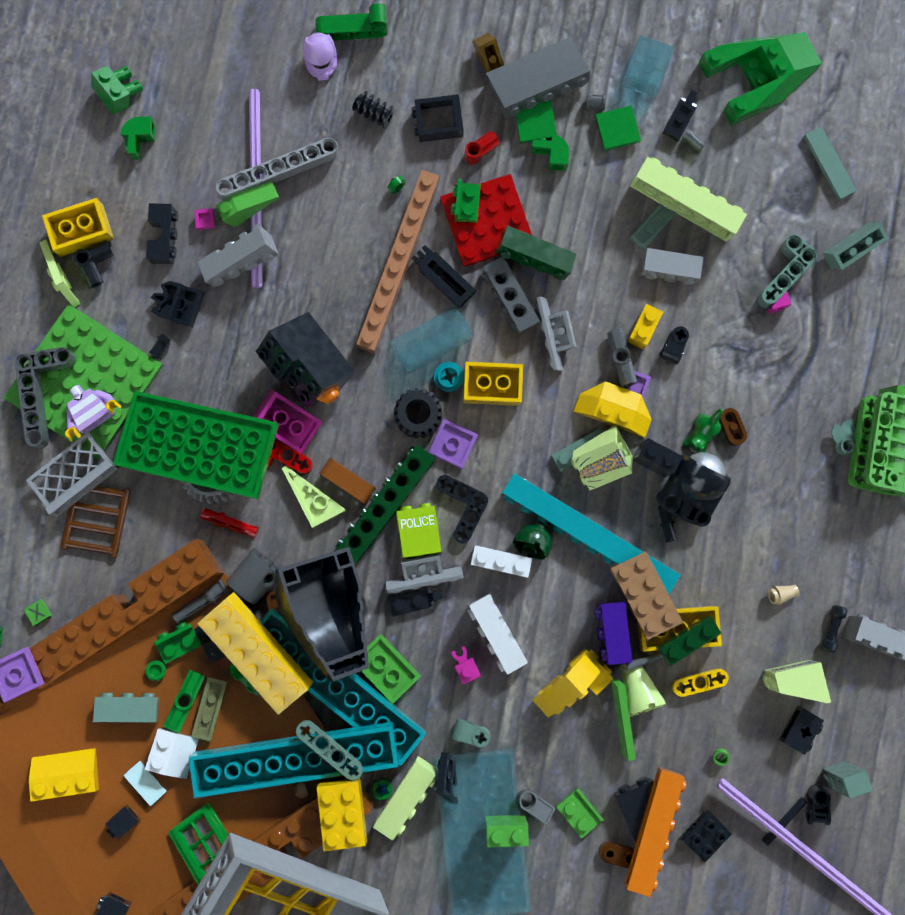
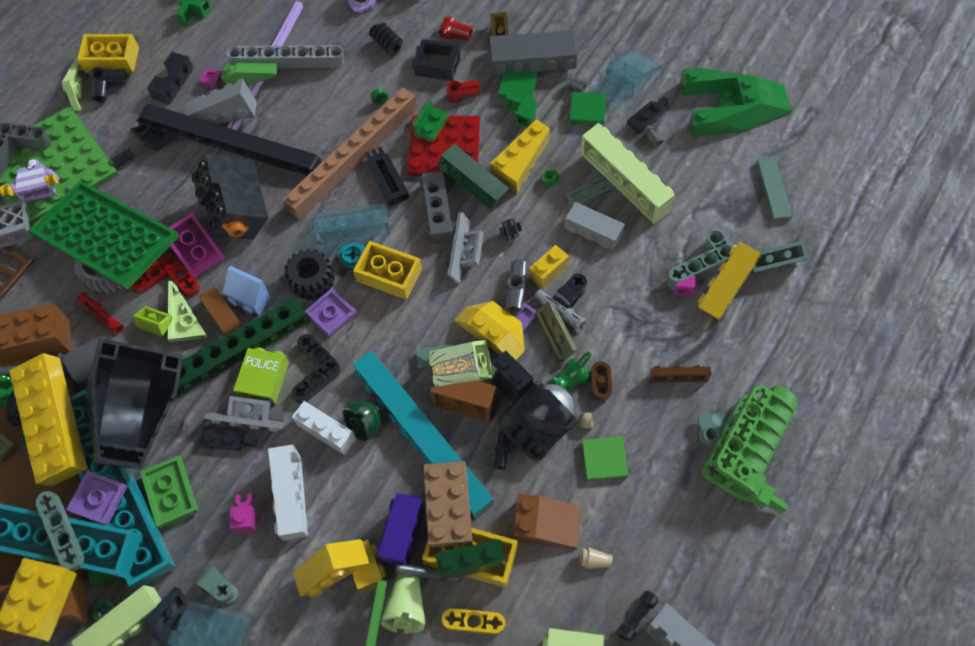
camera: 25 degrees right, 20 degrees down
(265, 291) = (229, 139): none -> black beam
(286, 513) = (152, 320): none -> lime slope
(337, 705) = (97, 498): none -> medium lavender plate
(365, 455) = (245, 291): none -> light blue slope
(437, 72) = (450, 28): none -> red piece
(571, 215) = (520, 156): none -> yellow wedge
(592, 297) = (510, 229): none -> black gear
(608, 224) = (550, 177): none -> green tile
(632, 488) = (468, 398): none -> dark orange slope
(675, 391) = (556, 331): none -> olive plate
(679, 371) = (567, 315): none -> light grey pin
(730, 576) = (546, 521): none -> dark orange slope
(732, 469) = (586, 420): none -> tan hinge
(760, 499) = (605, 458): none -> bright green tile
(801, 395) = (679, 373): none -> reddish brown plate
(822, 288) = (729, 281): none -> yellow brick

